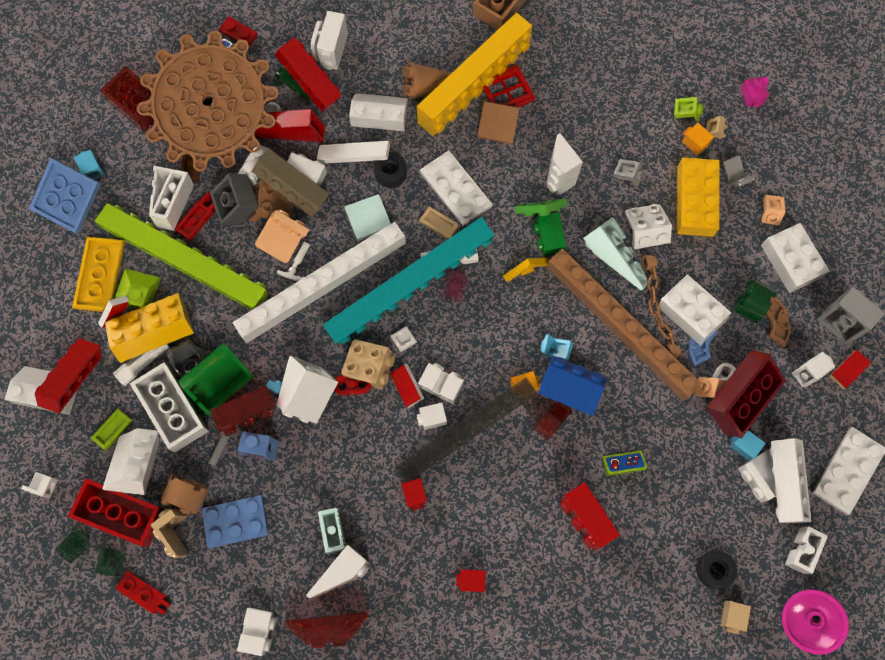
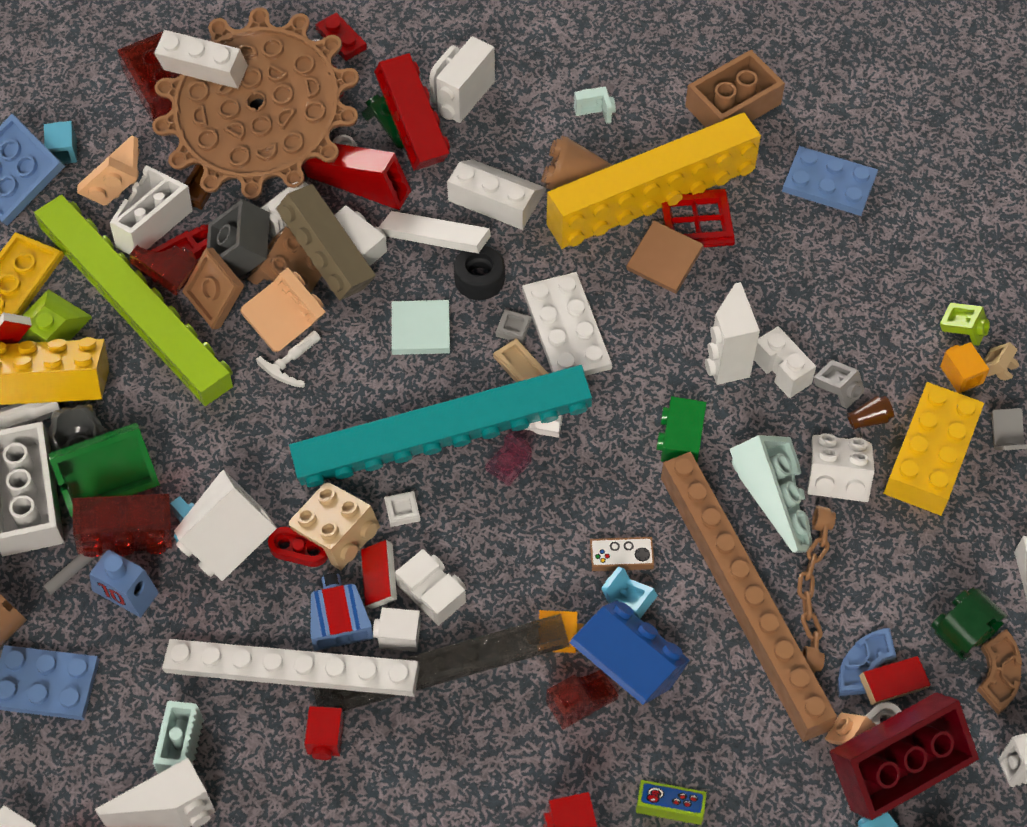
camera: 20 degrees right, 15 degrees down
(136, 177) = (113, 174): none -> light nougat bracket
(161, 83) = (201, 59): none -> white brick
(198, 232) = (168, 267): none -> clear red arch
(231, 235) = (213, 288): none -> medium nougat tile
(319, 282) = (311, 390): white brick -> none
(379, 462) = (292, 667): none -> white plate
(393, 419) = (338, 615): none -> torso
(416, 29) = (594, 101): none -> light aqua bracket
(424, 198) = (513, 326): none -> light grey tile
(525, 267) = (627, 465): yellow tile -> none
(542, 323) = (627, 553): none -> tile
(543, 208) = (682, 388): bright green plate -> none
(577, 38) = (830, 180): none -> medium blue plate
(595, 169) = (783, 357): none -> white brick
(654, 185) = (871, 413): none -> reddish brown cone
(694, 309) = (867, 607): white brick -> none
(722, 348) = (894, 680): none -> red tile

